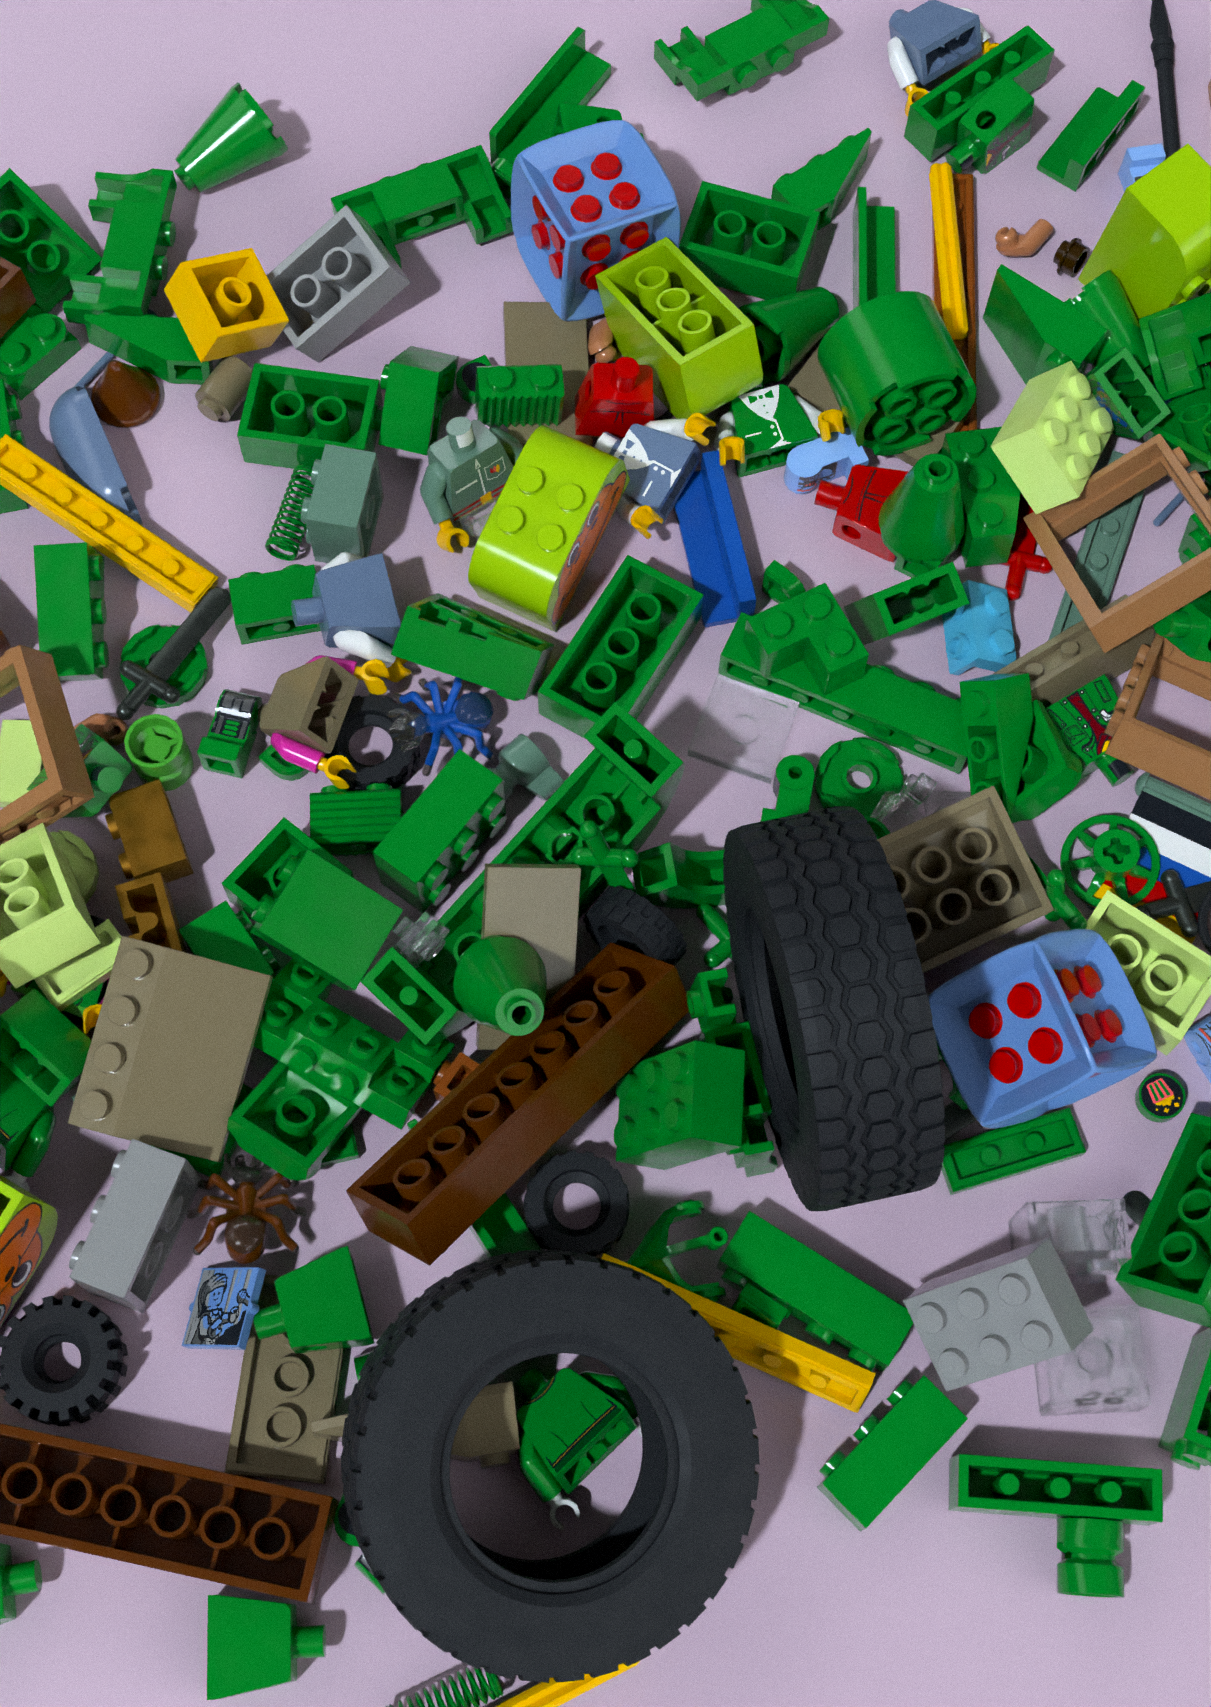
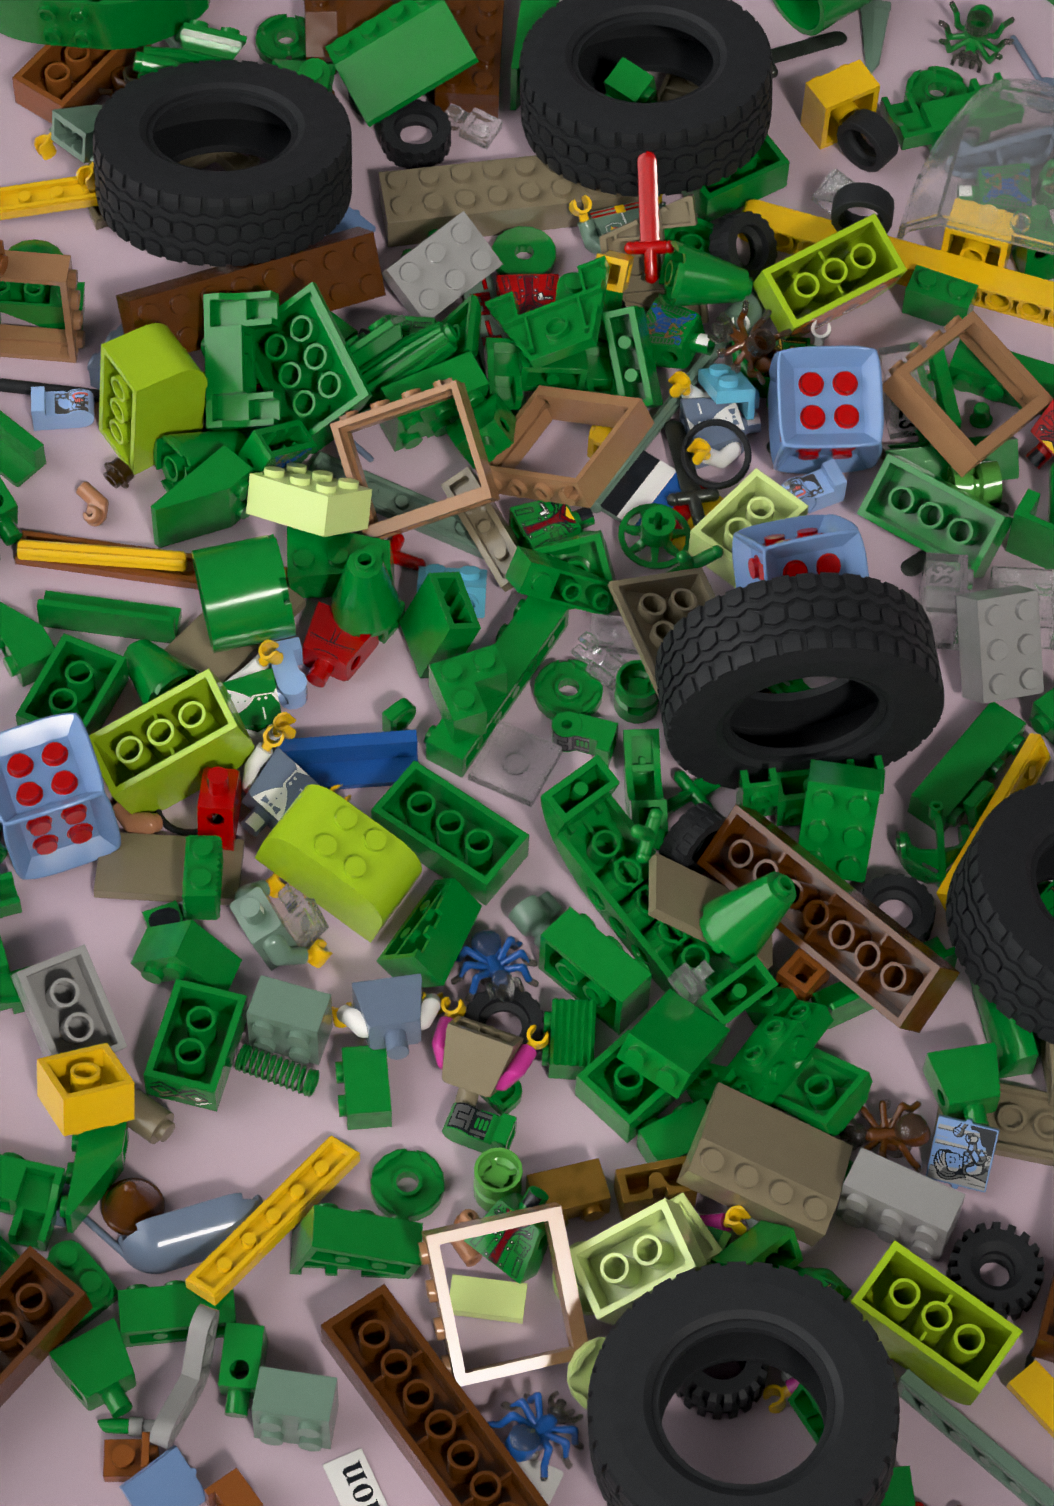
camera: 85 degrees left, 10 degrees down
(154, 677) = (425, 1185): pearl dark grey sword -> none

